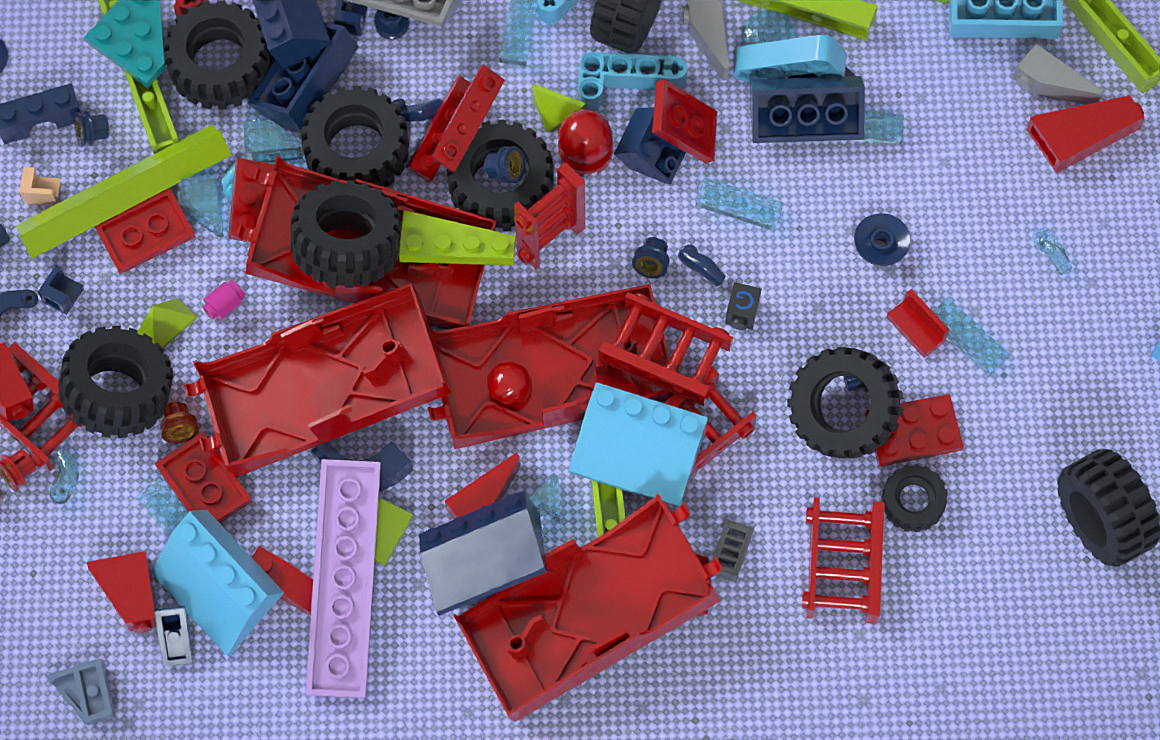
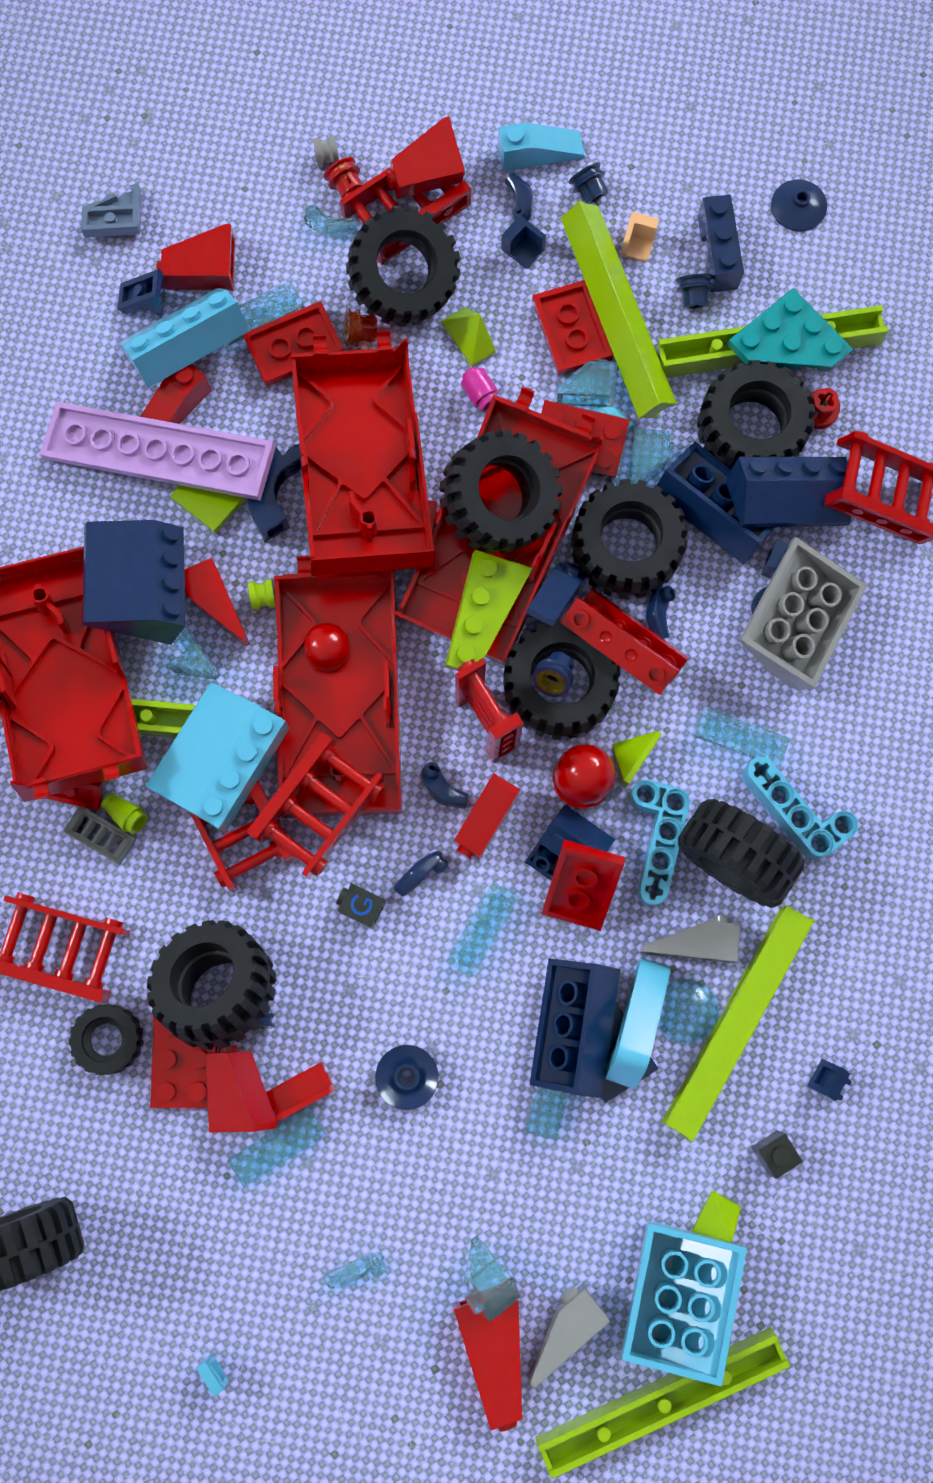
camera: 100 degrees right, 10 degrees up
(427, 183) = (556, 594): none -> dark blue slope
(469, 454) = (262, 594): none -> lime wheel
(621, 264) = (440, 789): none -> dark blue arm
(639, 213) = (486, 817): none -> red slope
(651, 258) = (437, 821): dark blue piece -> none
(706, 530) = (126, 814): none -> lime cone
(934, 369) = (236, 1093): none -> red slope
(1030, 137) = (488, 1282): none -> clear light blue slope

